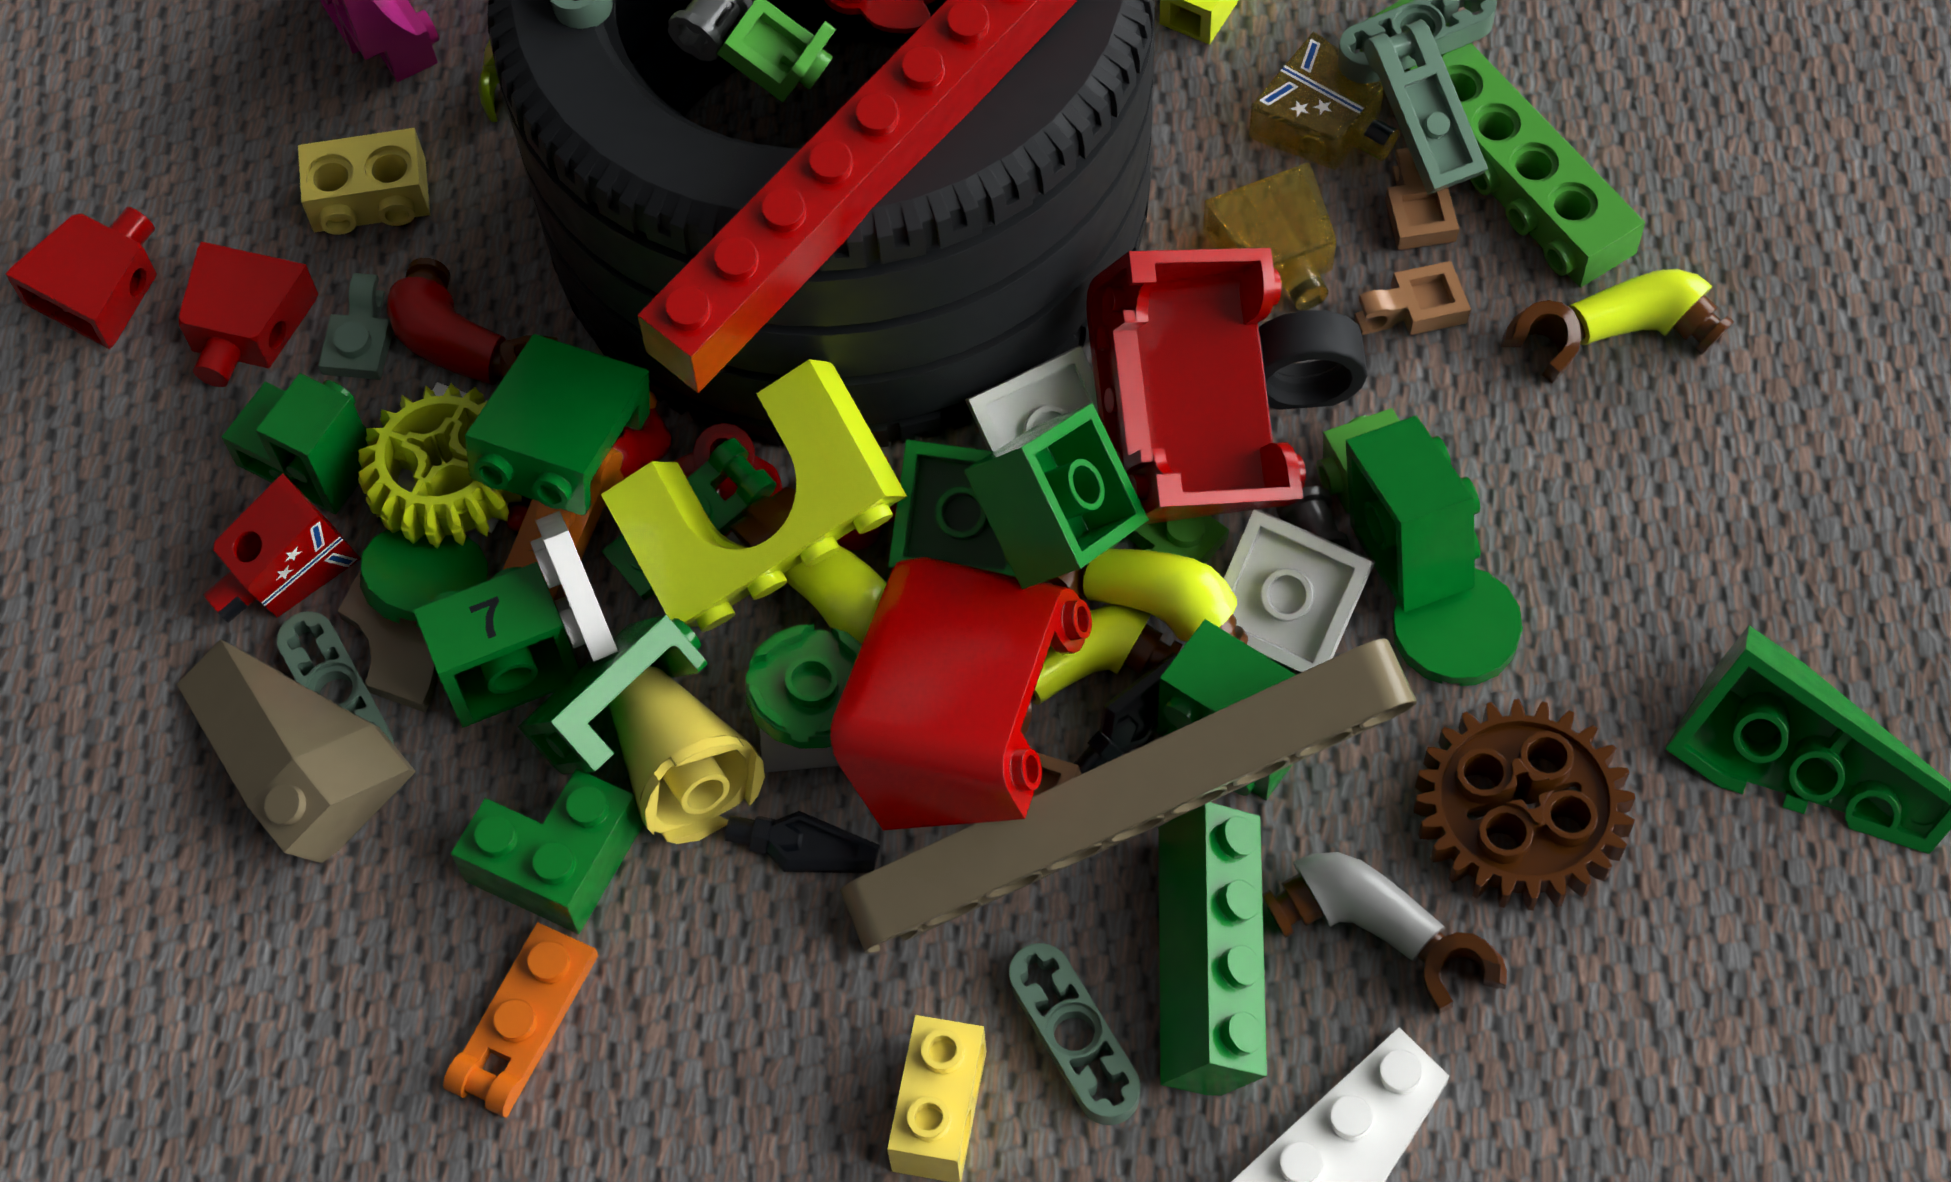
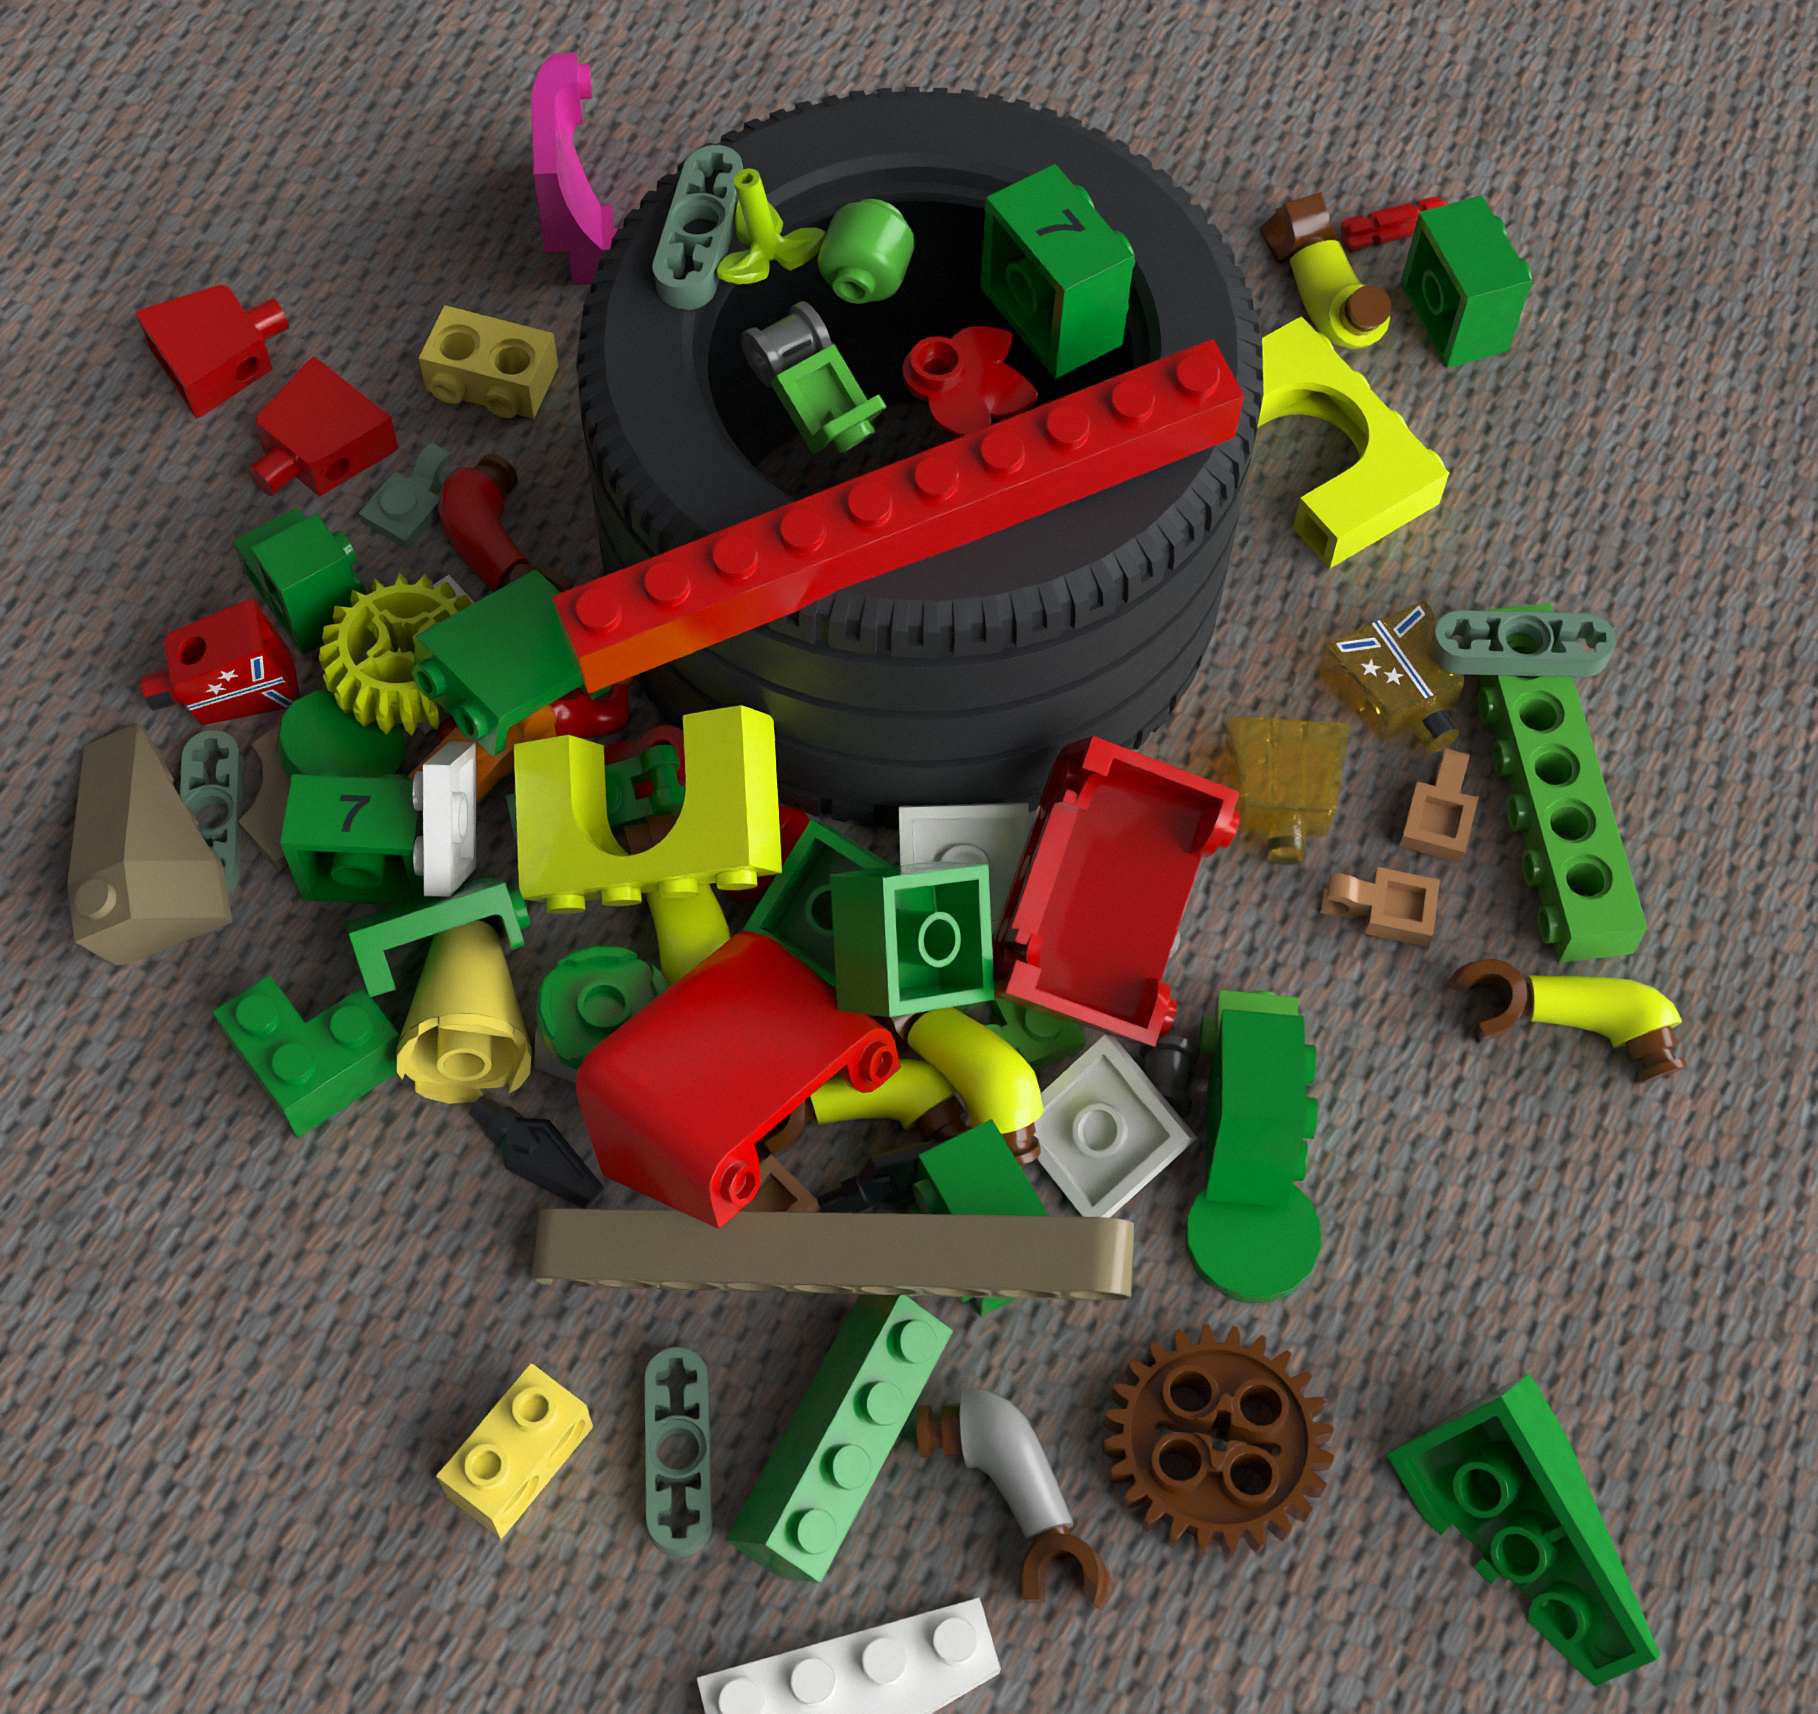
camera: 20 degrees right, 0 degrees up
(521, 1018) = (202, 1192): orange plate -> none
(1317, 336) = (1244, 914): black tyre -> none
(1426, 107) = (1488, 721): sand green plate -> none

